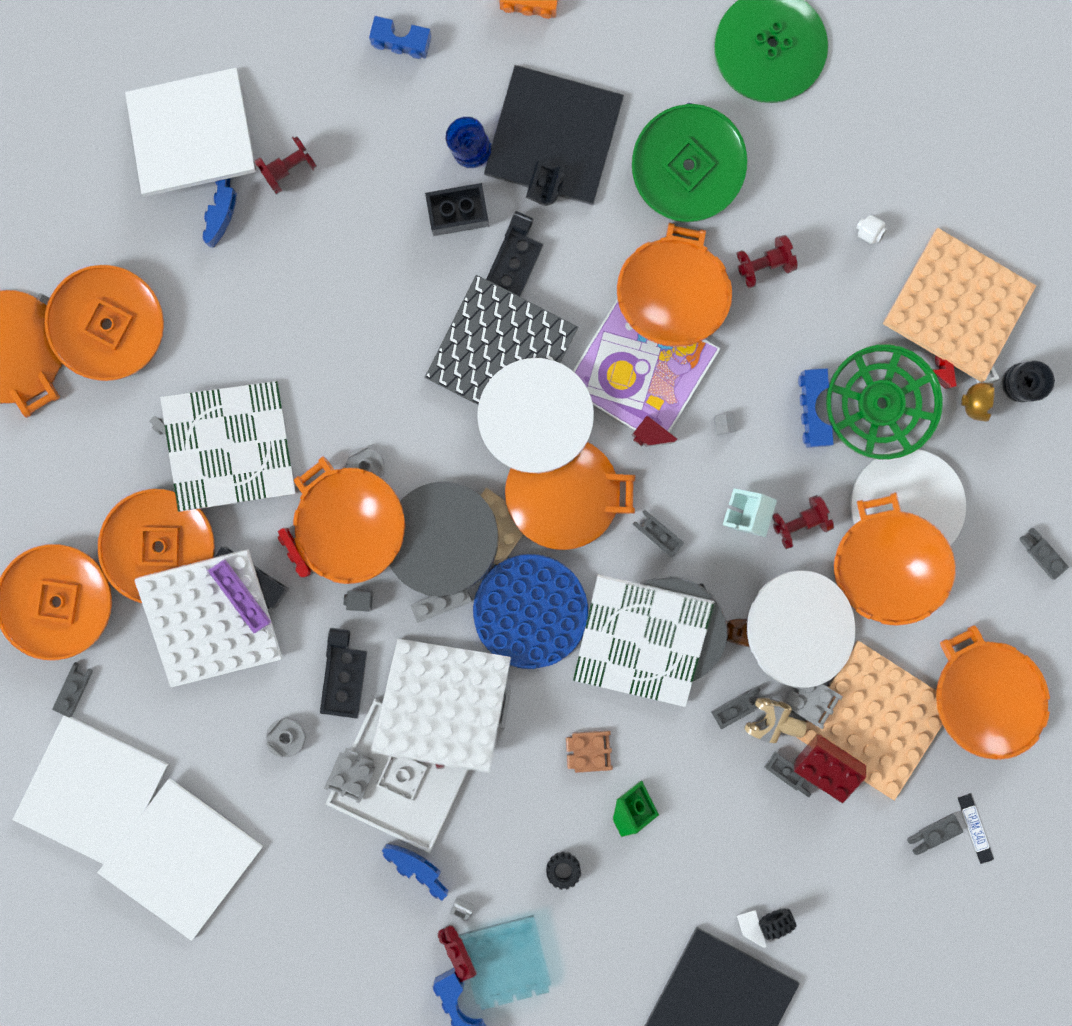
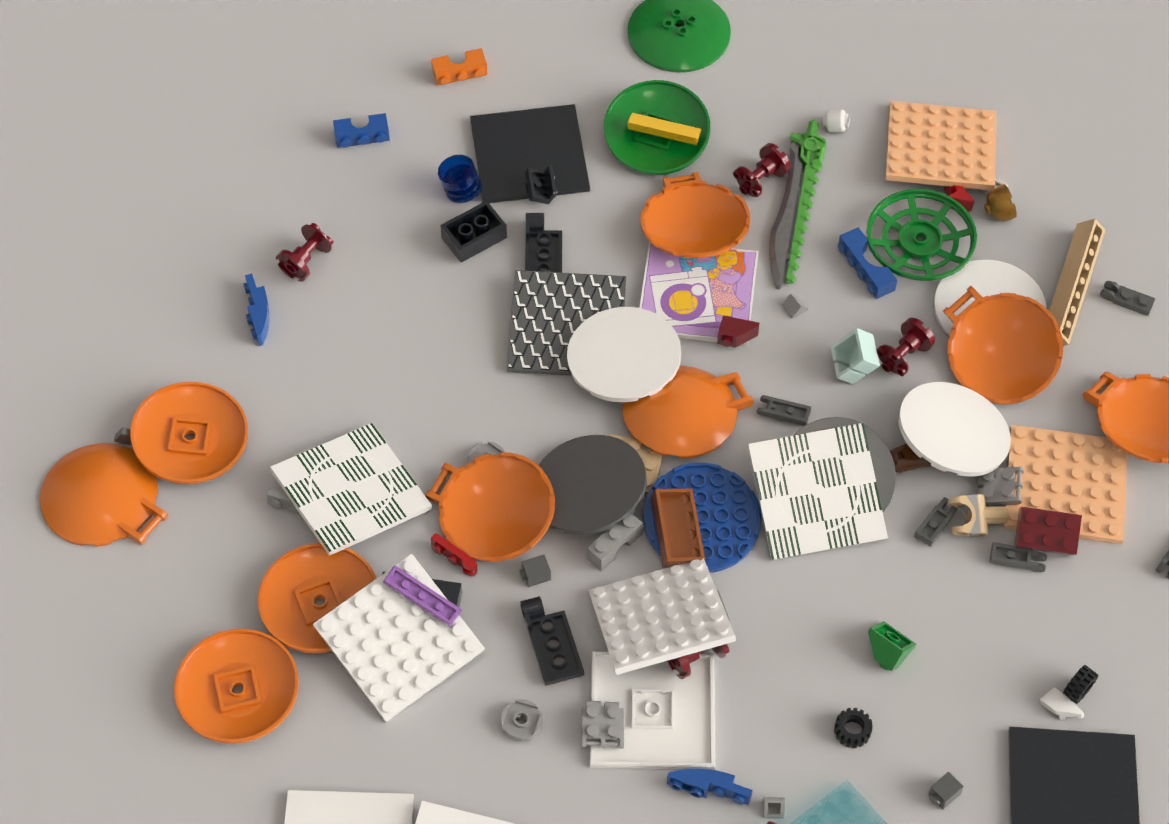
camera: 25 degrees left, 30 degrees down
(72, 691) = (286, 767): dark grey hinge -> none
(190, 132) = (205, 260): white tile -> none
(501, 617) = (677, 526): none -> dark orange slope
(588, 751) = (820, 615): nougat plate -> none
(611, 962) = (945, 790): none -> dark grey brick
(694, 170) = (664, 128): none -> yellow slope
(828, 257) = (811, 158): none -> piece
(1004, 515) = (1076, 276): none -> tan brick
(1038, 377) = (1031, 174): black wheel -> none

